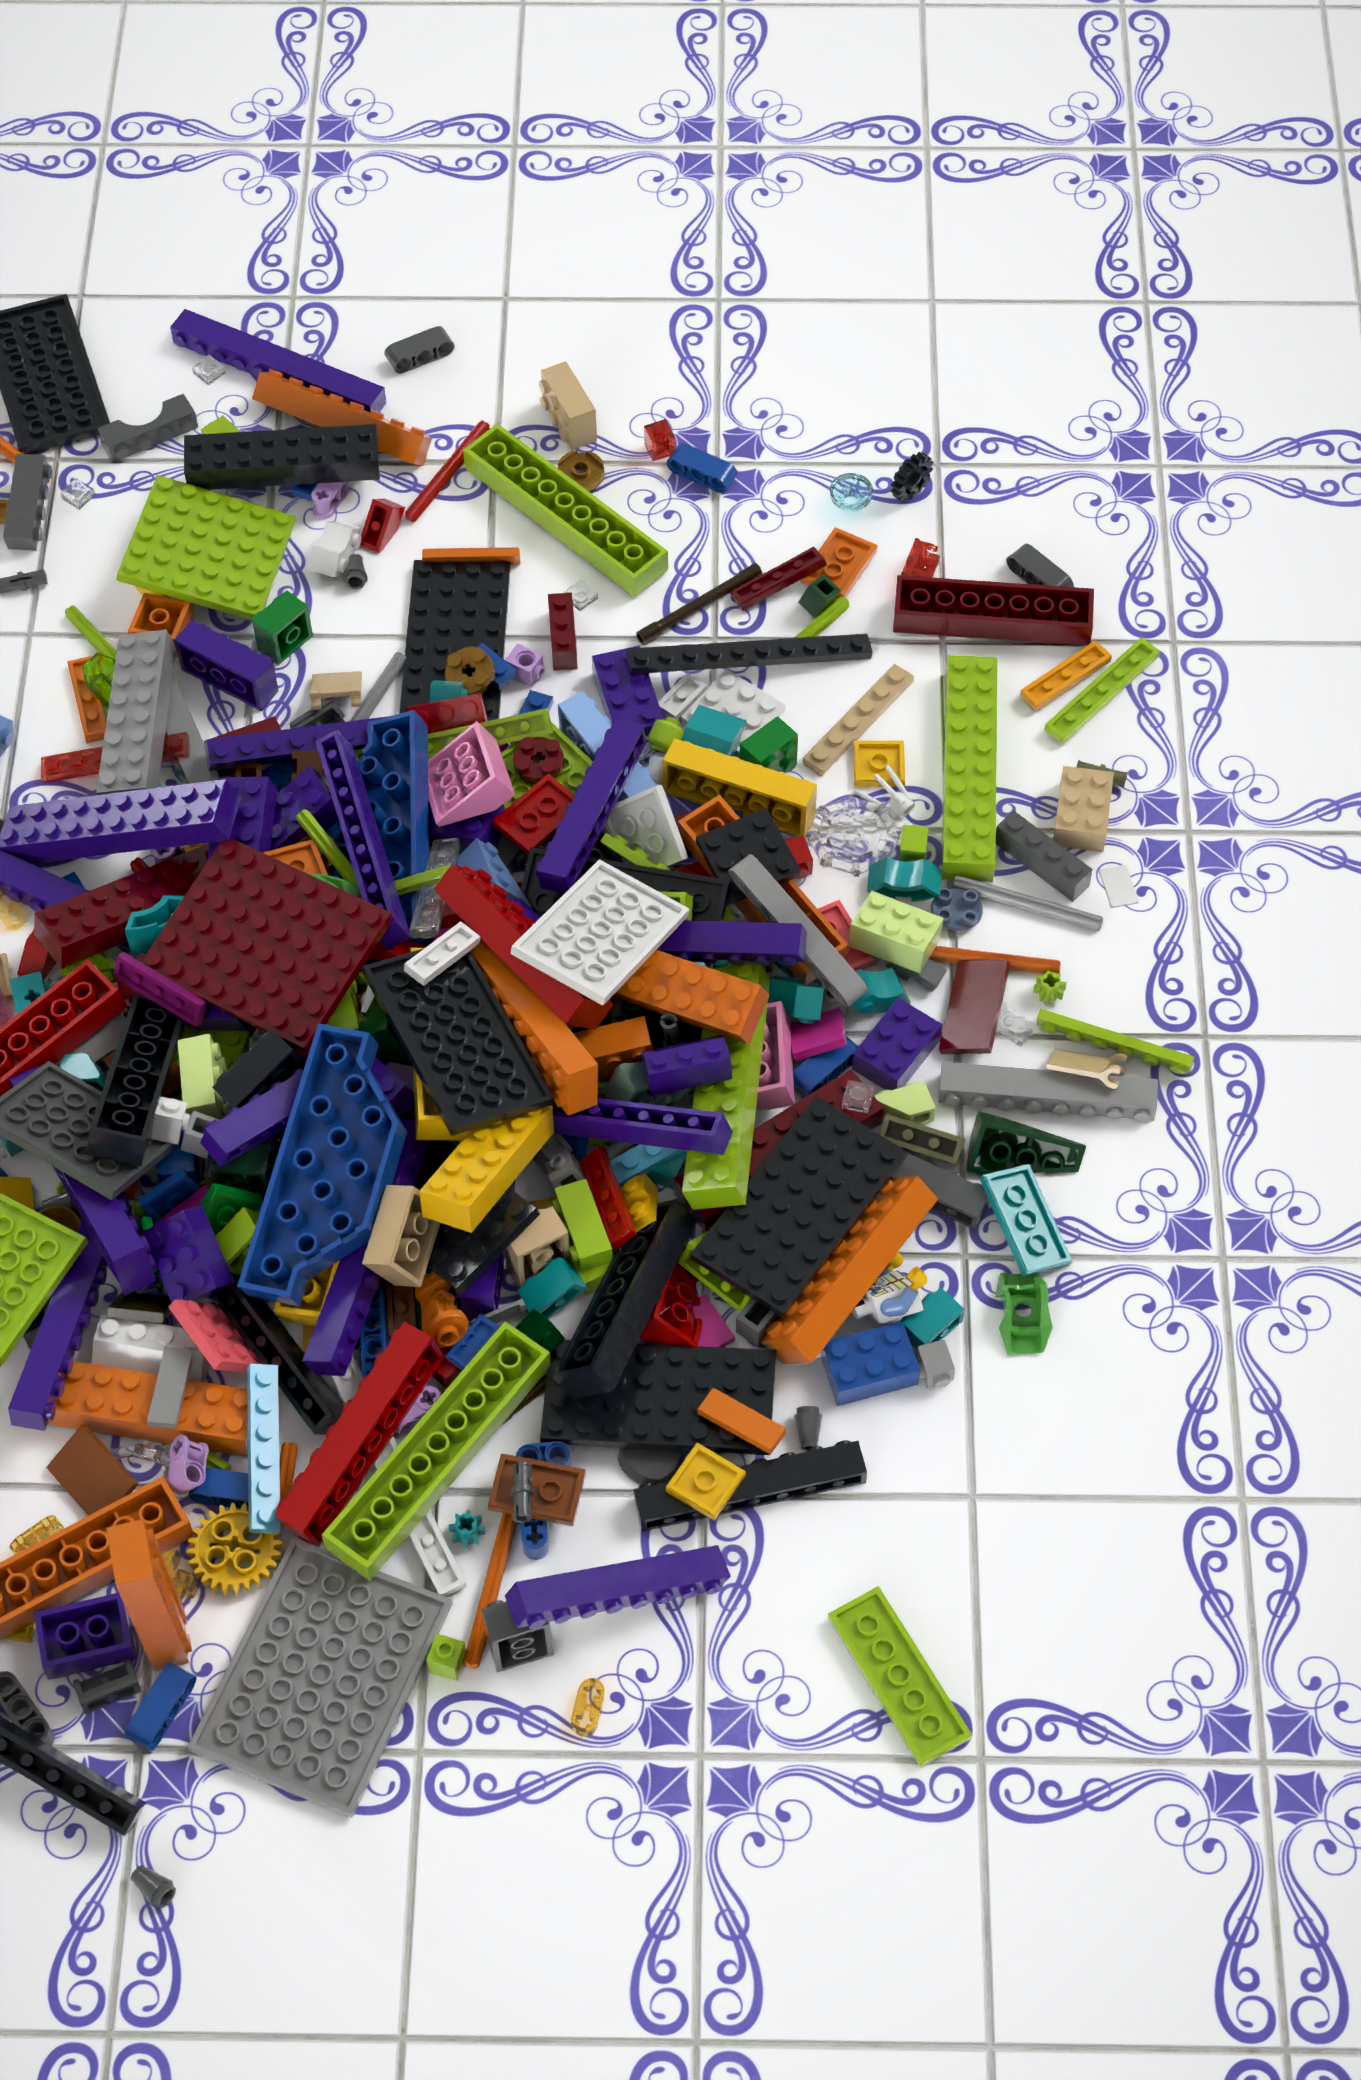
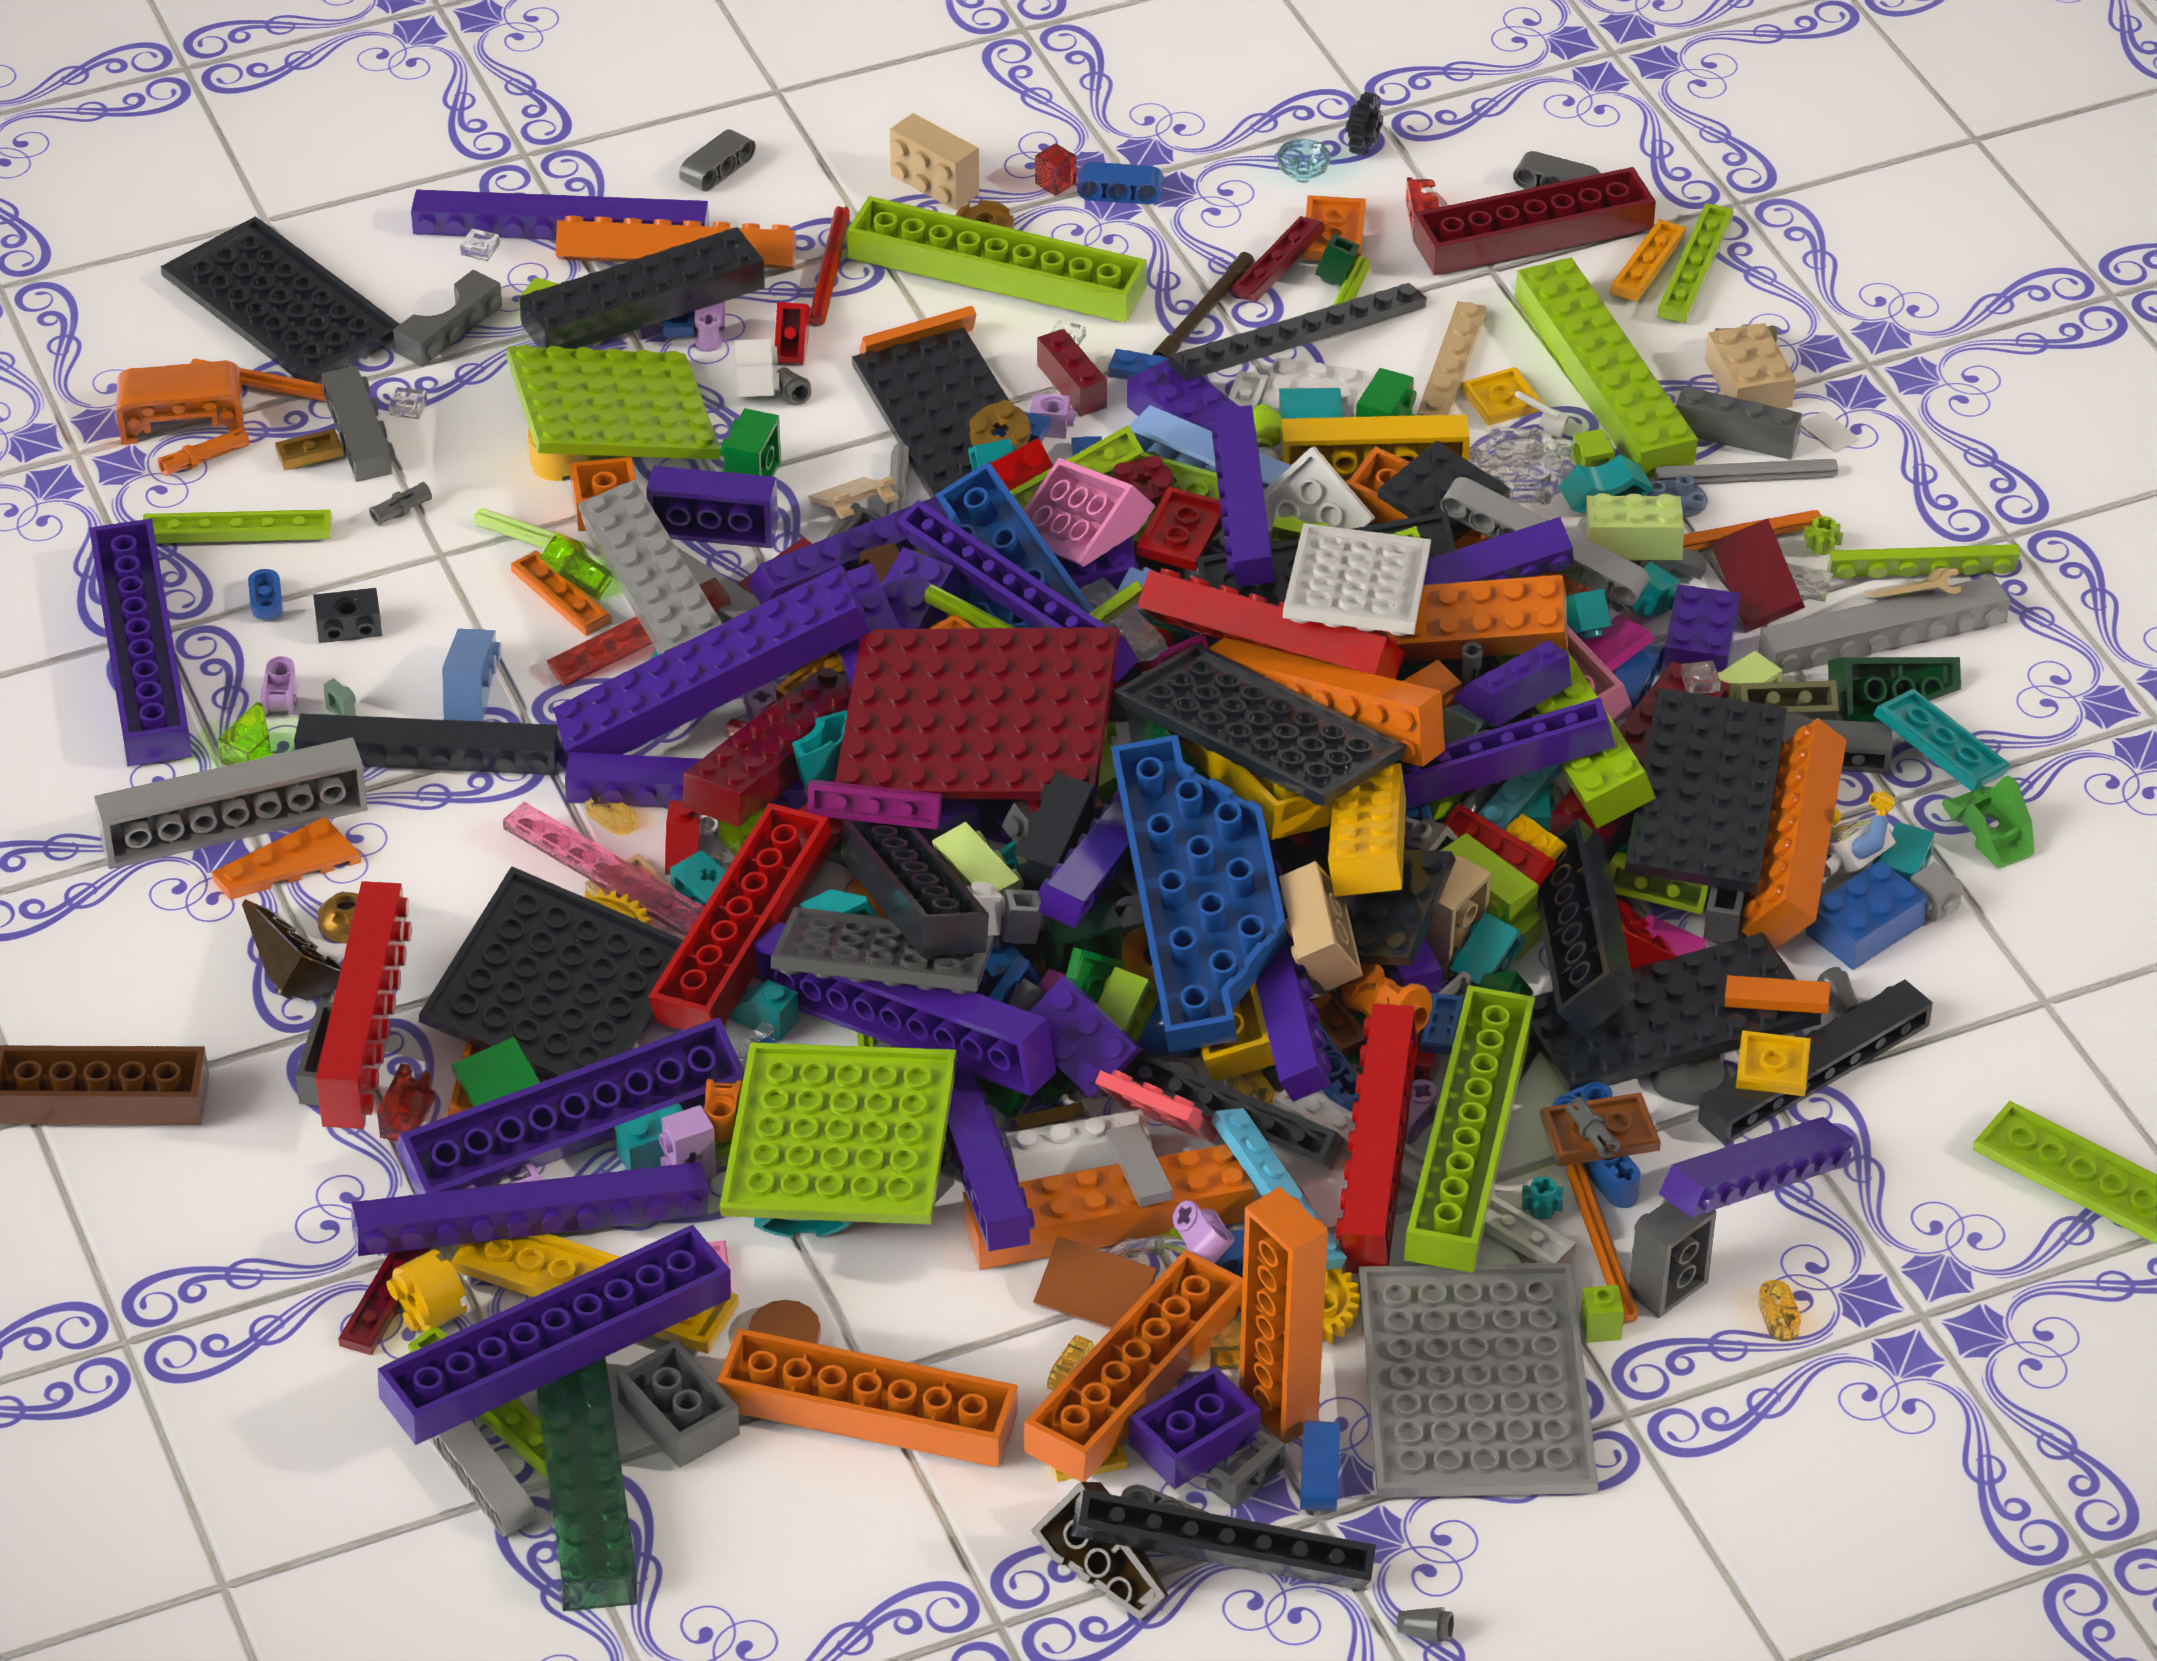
camera: 25 degrees left, 15 degrees down
(171, 1204) = (1026, 995): none -> dark grey cone
(442, 953) = (1192, 655): white plate -> none
(616, 637) = (1129, 363): none -> blue plate

